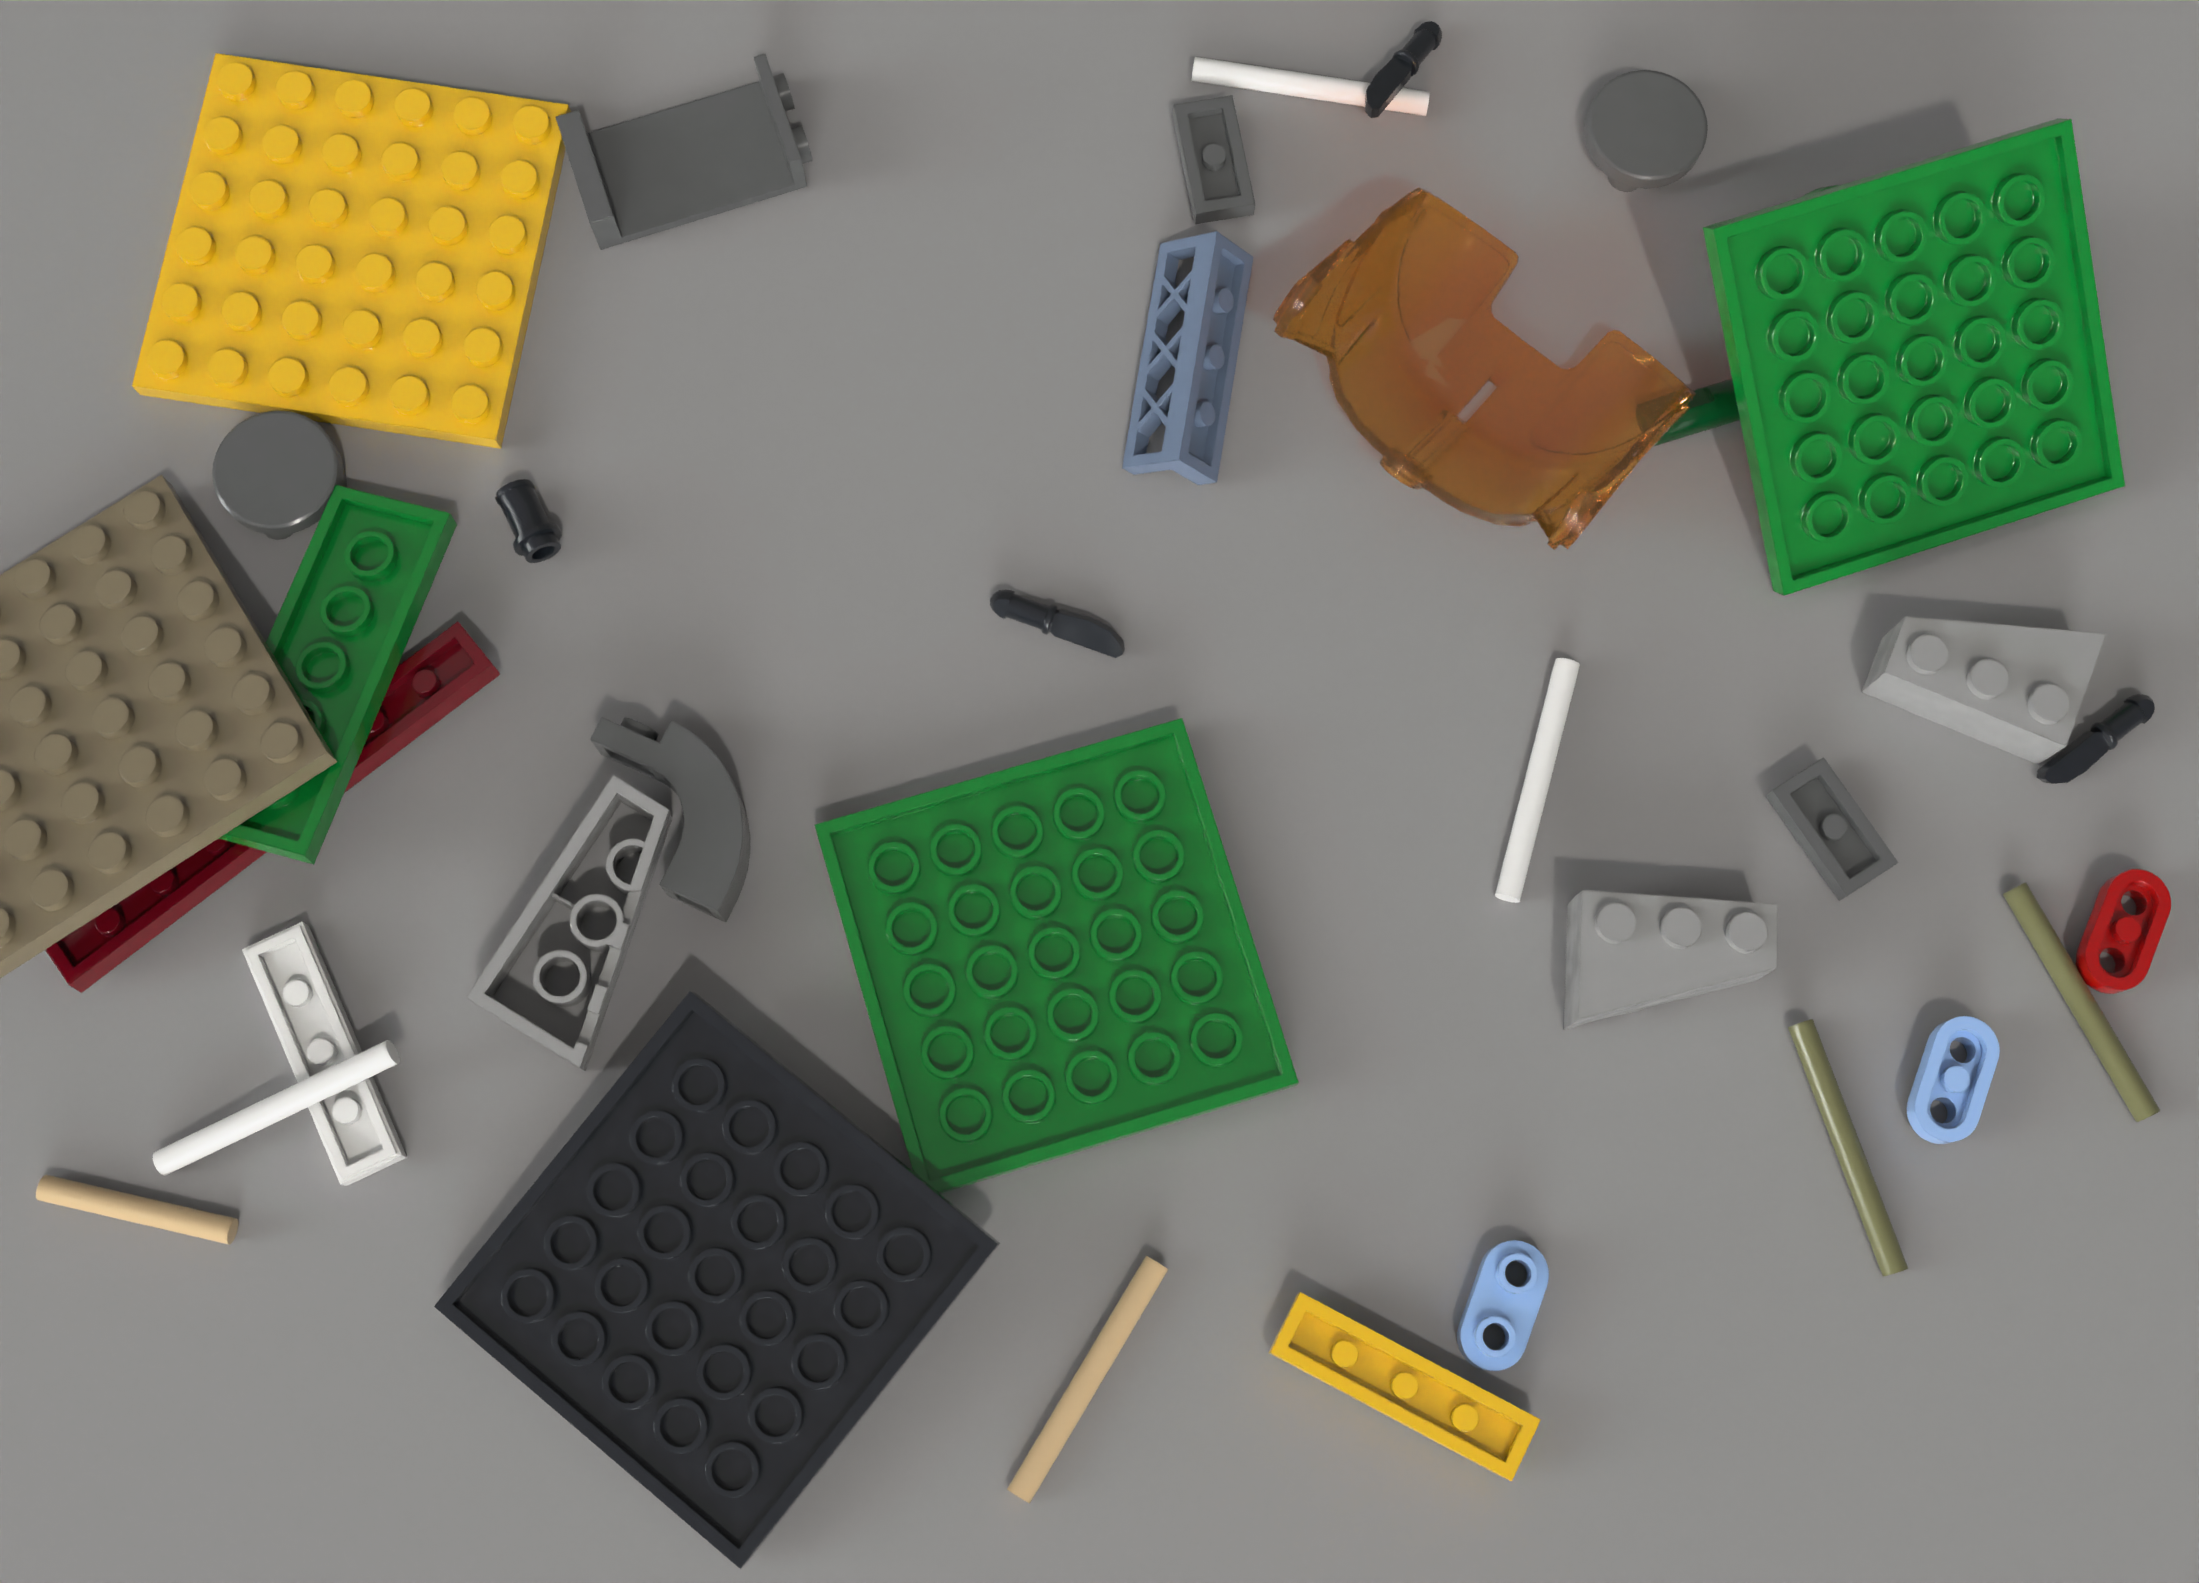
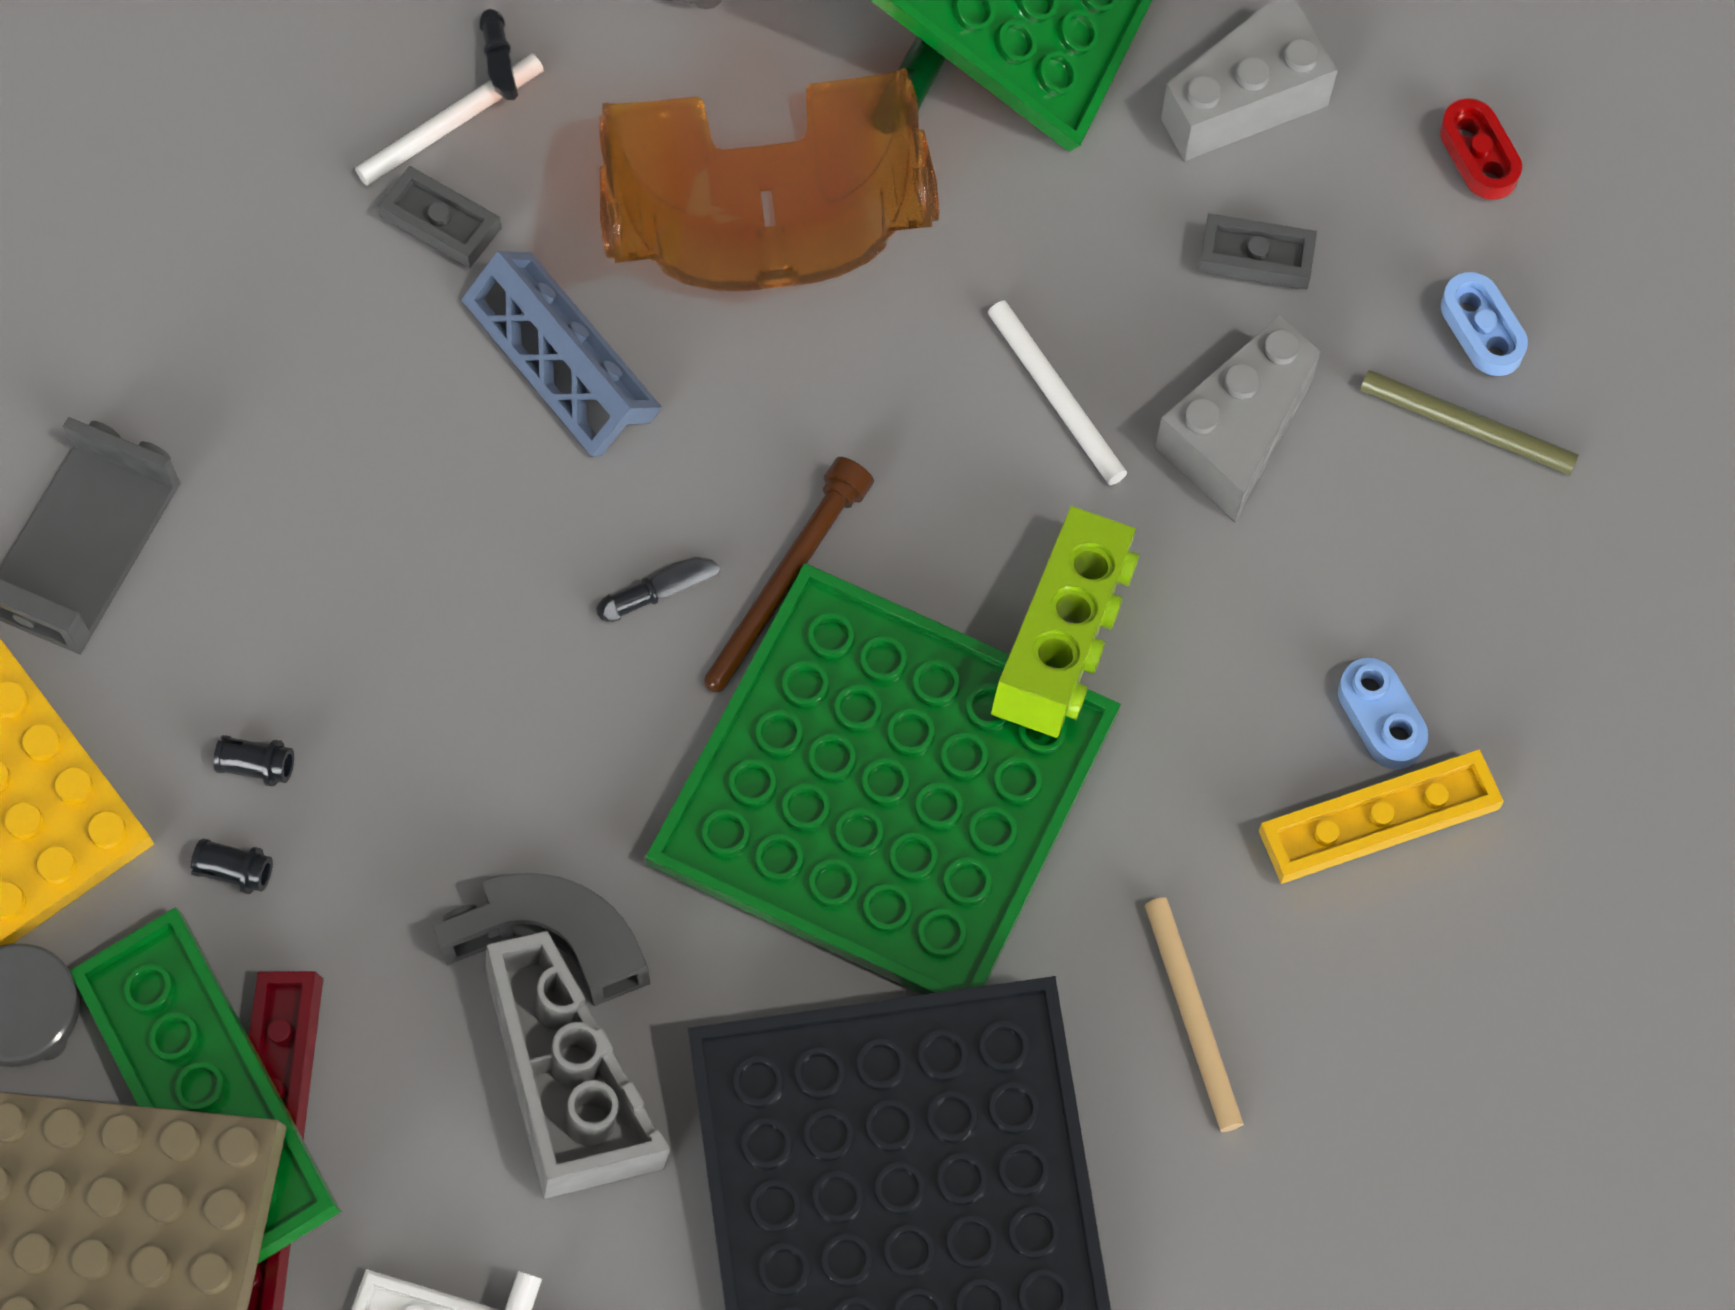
camera: 45 degrees left, 10 degrees down
(633, 467) = (254, 759): none -> black pin
(1281, 688) = (844, 485): none -> reddish brown piece
(1408, 927) = (1075, 588): none -> lime brick
(2081, 1002) = (1501, 212): olive bar -> none
(2095, 743) = (1346, 61): black piece -> none

